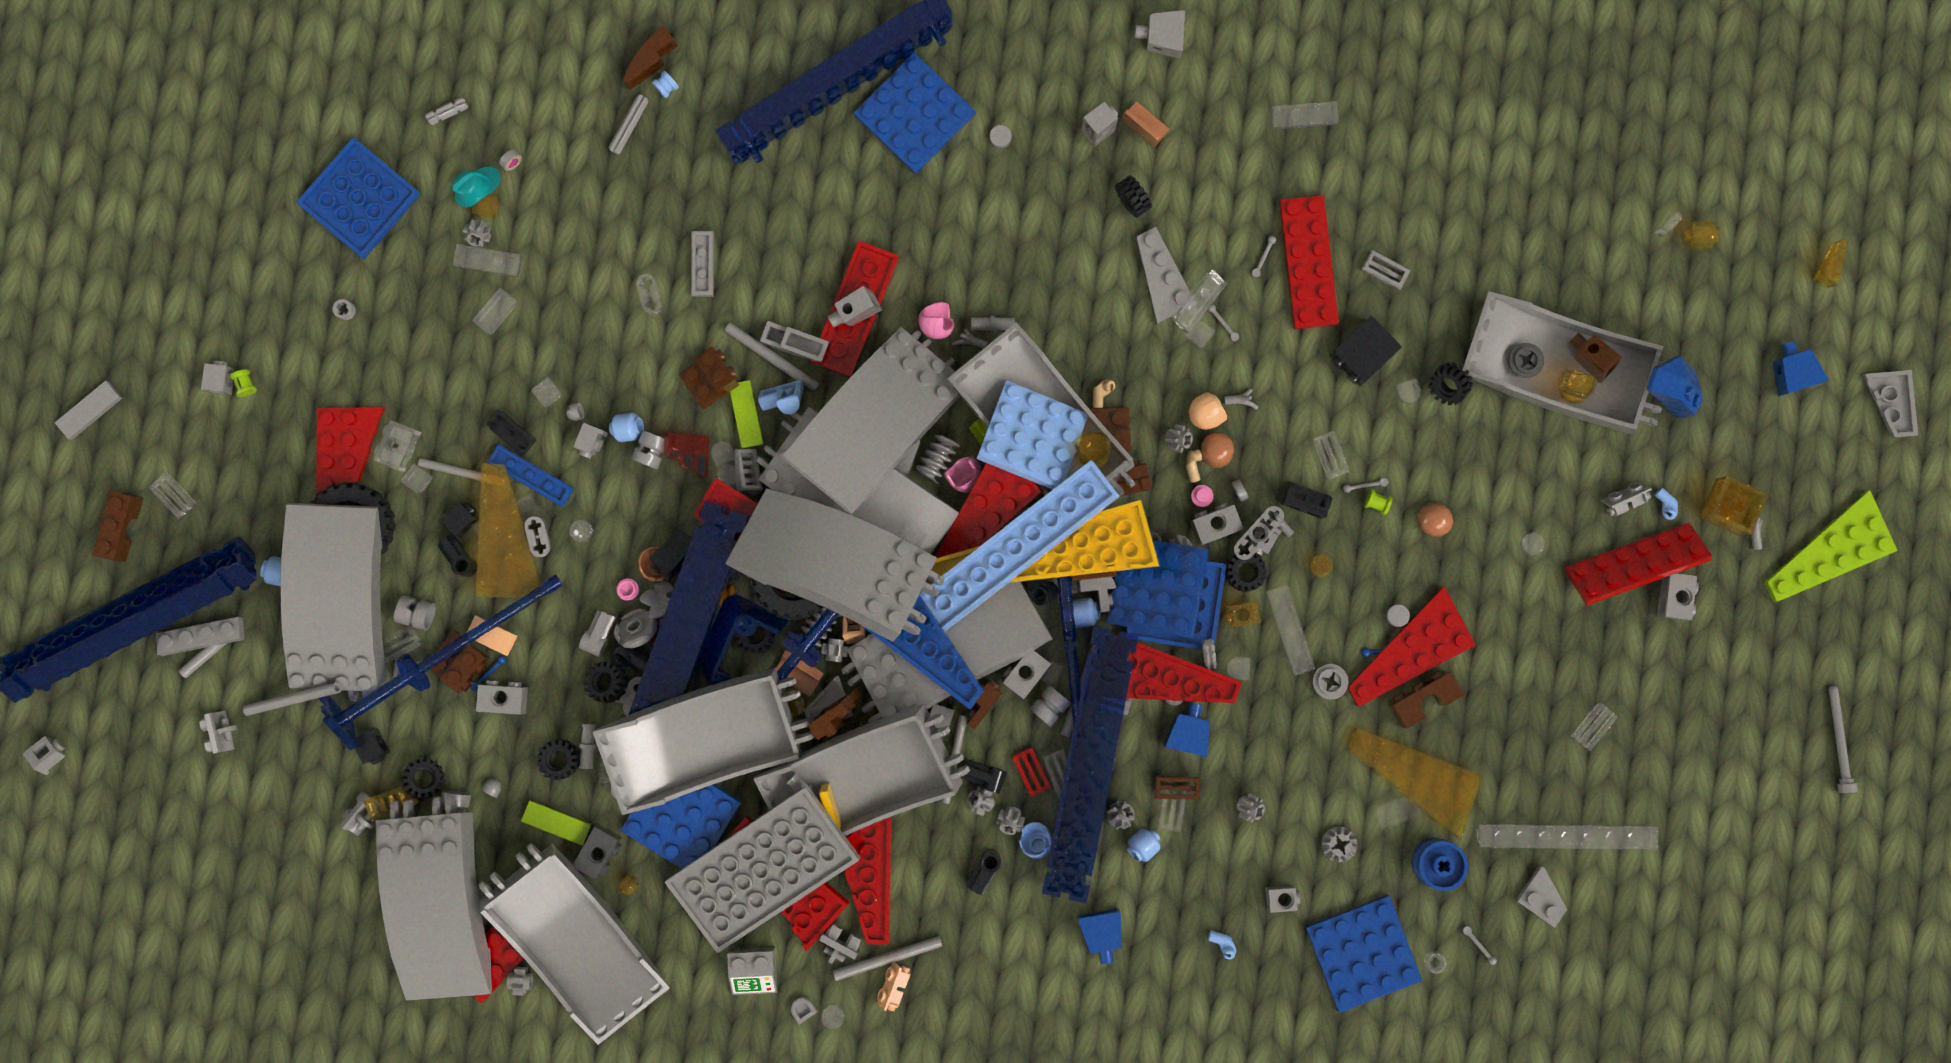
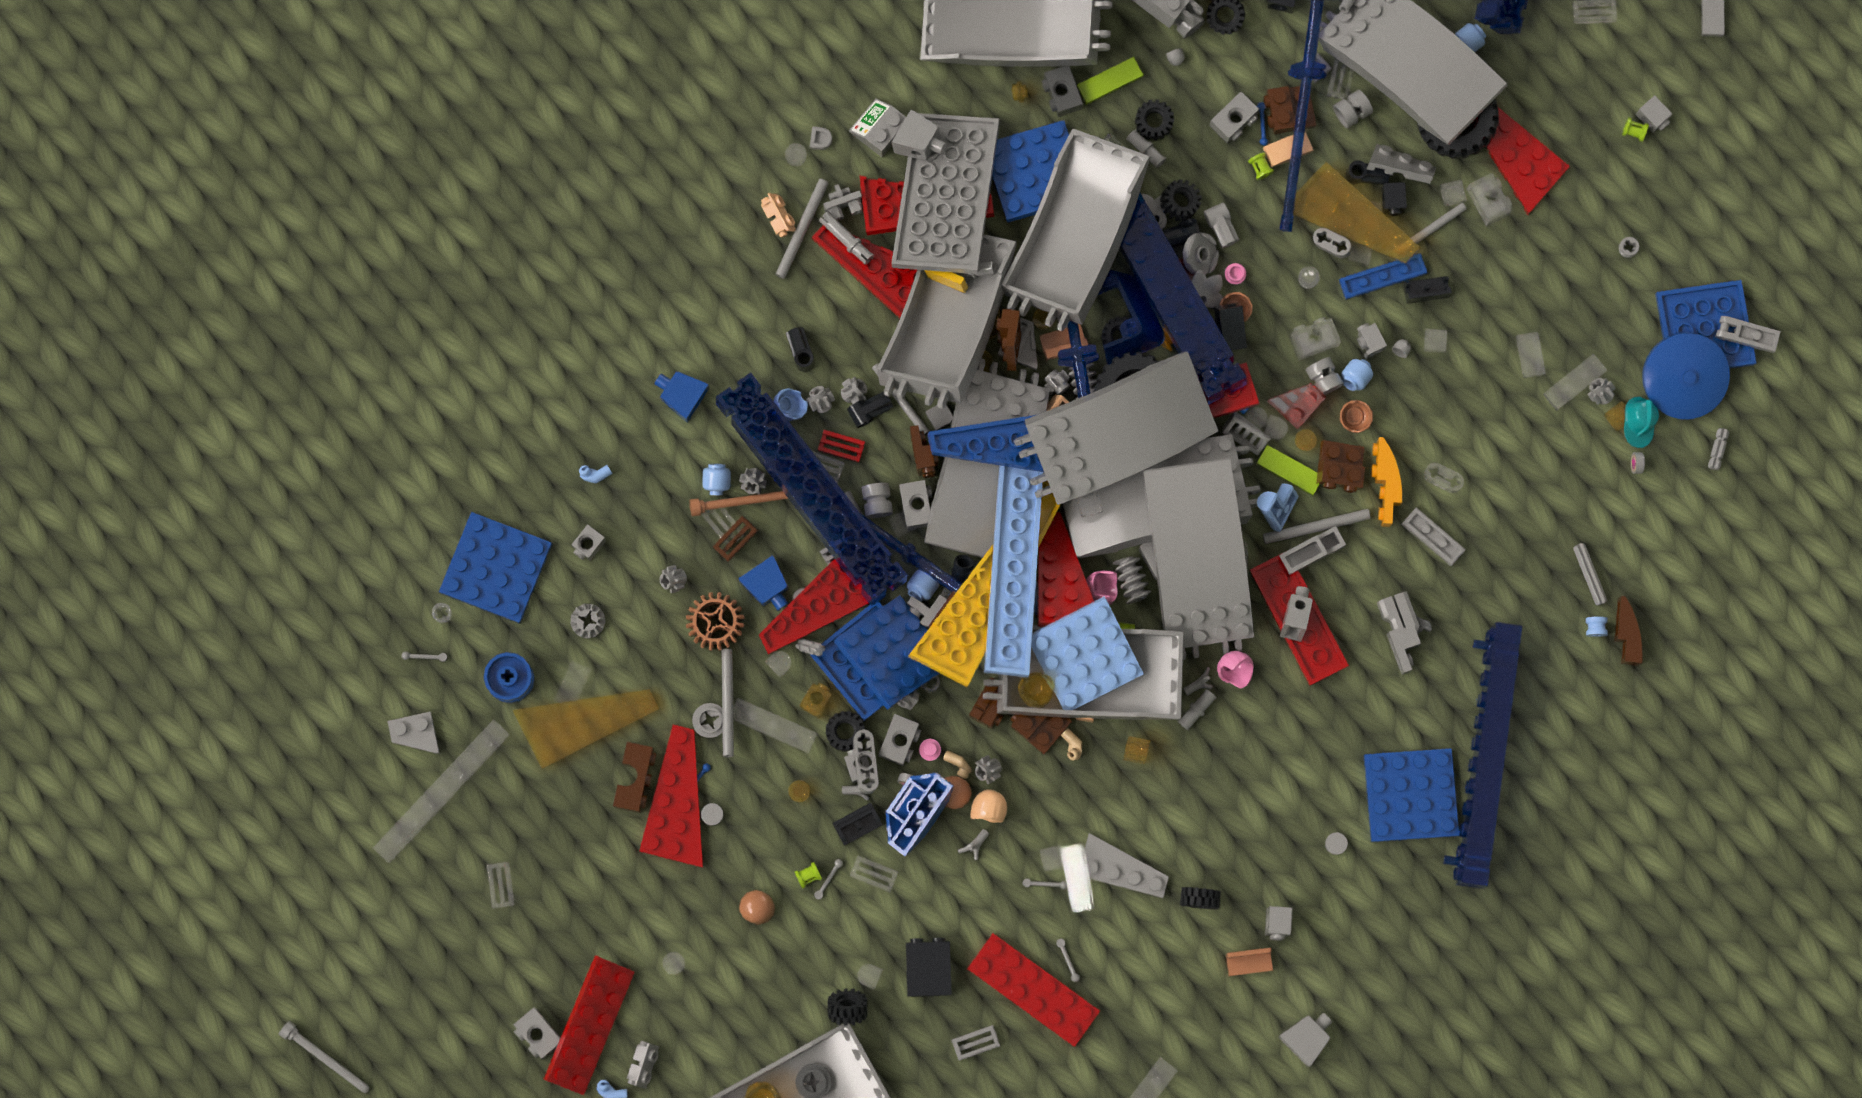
camera: 130 degrees right, 5 degrees down
(334, 159) = (1748, 334): none -> light grey plate
(408, 179) = (1686, 375): none -> blue dish
(430, 544) = (1393, 162): none -> light grey wing
(523, 644) = (1261, 166): none -> lime bush
(612, 481) = (1307, 347): none -> clear brick
(660, 399) = (1356, 416): none -> nougat hair
(683, 339) = (1386, 473): none -> light orange slope
(712, 422) = (1305, 440): none -> clear yellow plate
(736, 931) = (918, 138): none -> light grey torso
(792, 224) = (1404, 626): none -> light grey plate
(866, 915) = (853, 244): none -> light grey pin
(1064, 341) = (1136, 750): none -> clear yellow brick
(1178, 838) = (698, 506): none -> nougat piece
(1261, 463) = (916, 810): none -> blue wedge
(1272, 741) = (711, 630): none -> nougat gear
(1306, 679) = (727, 703): none -> light grey piece

